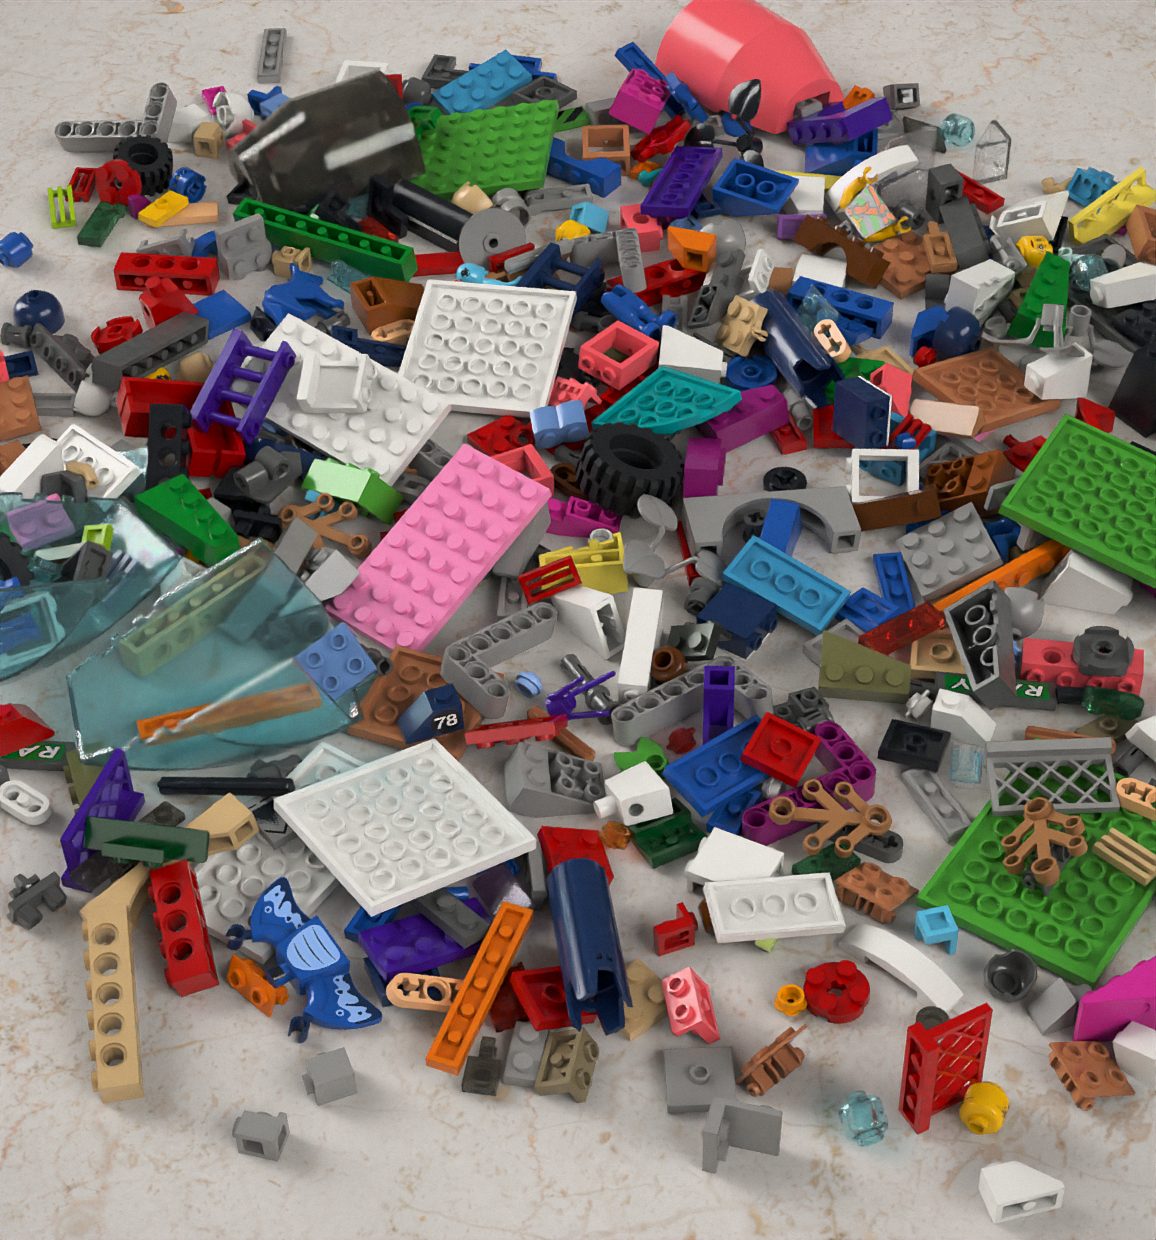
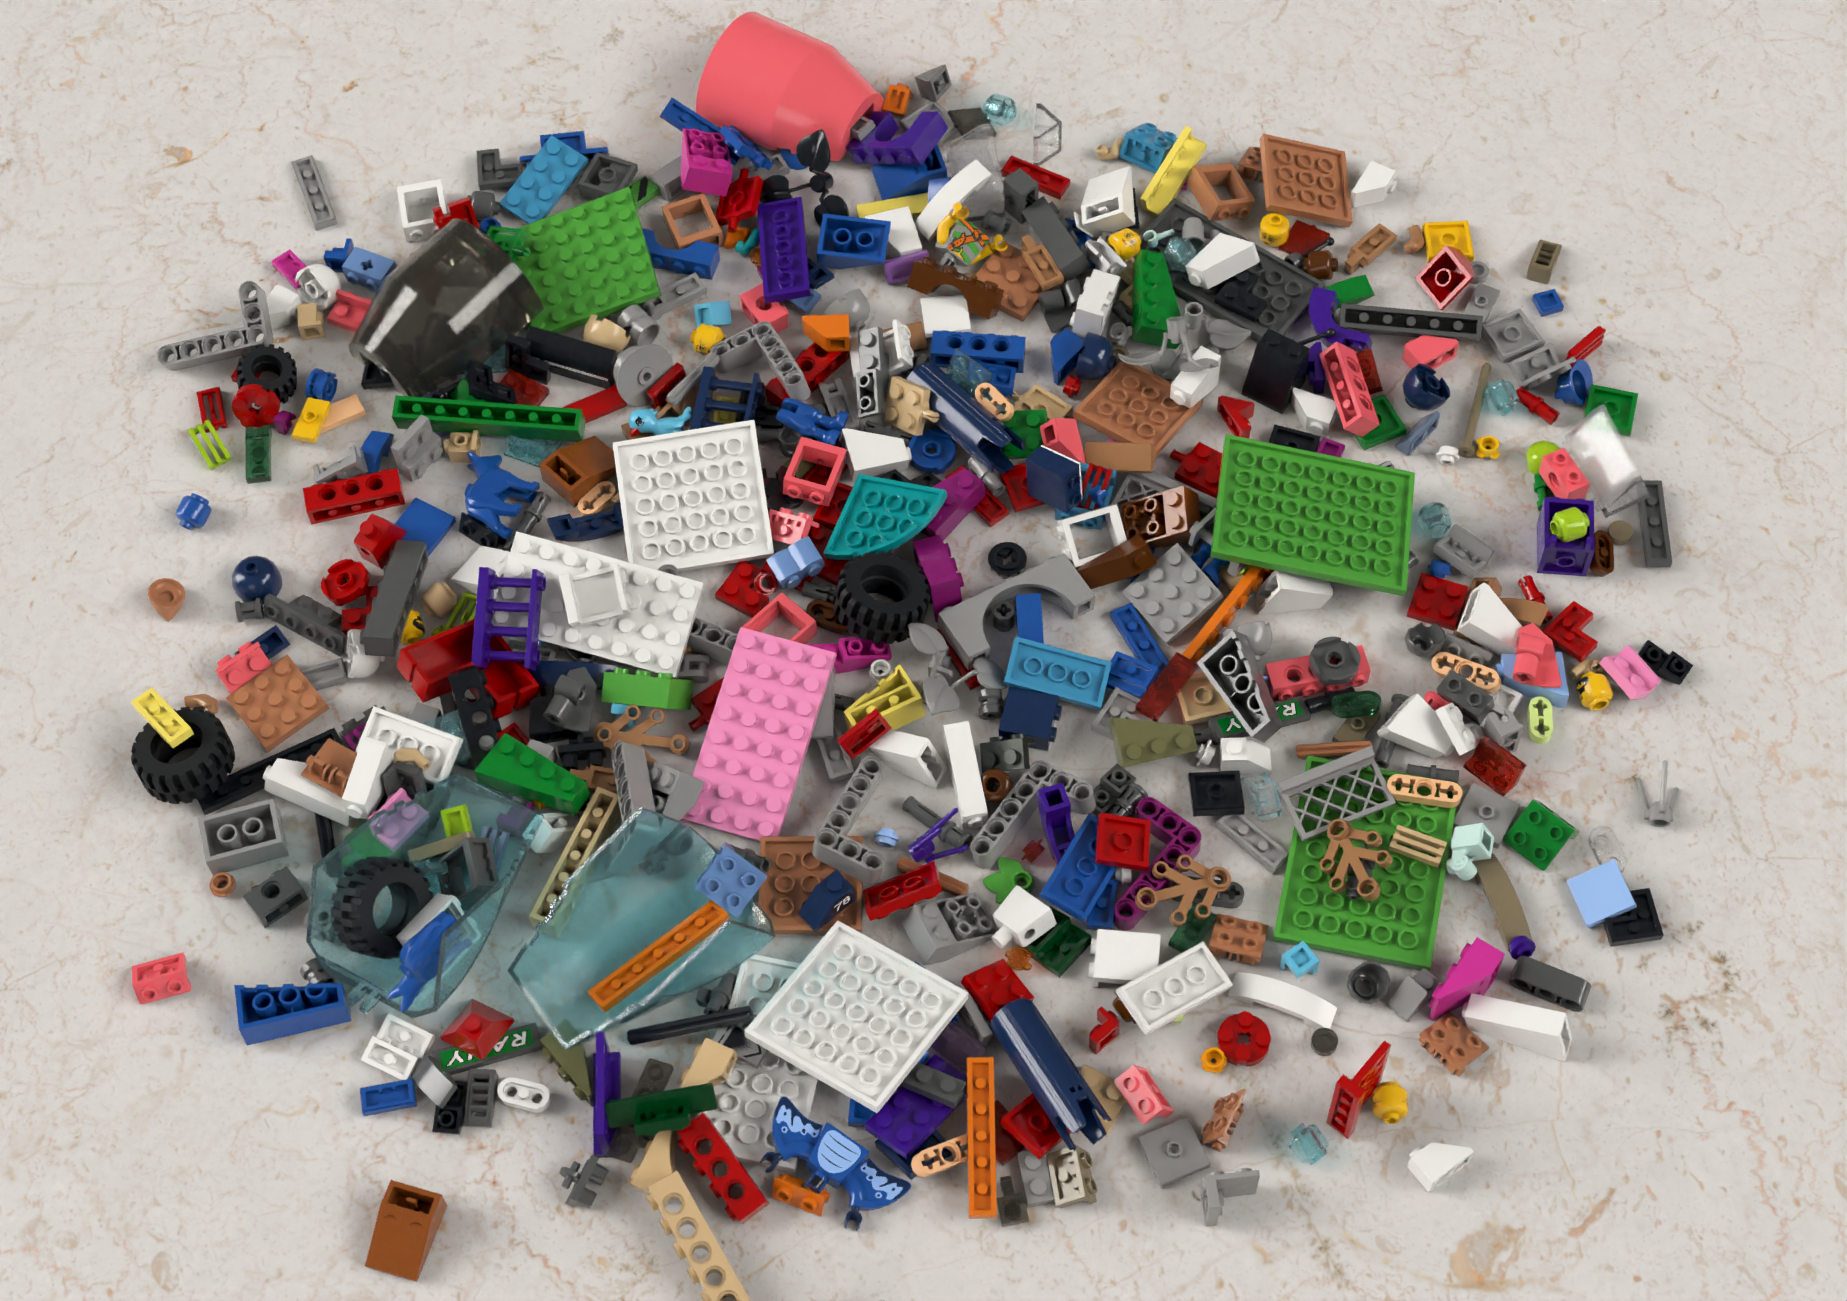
camera: 20 degrees left, 15 degrees up
(329, 1076) = (897, 1253): light grey brick -> none
(669, 548) = (942, 669): none -> light grey bracket

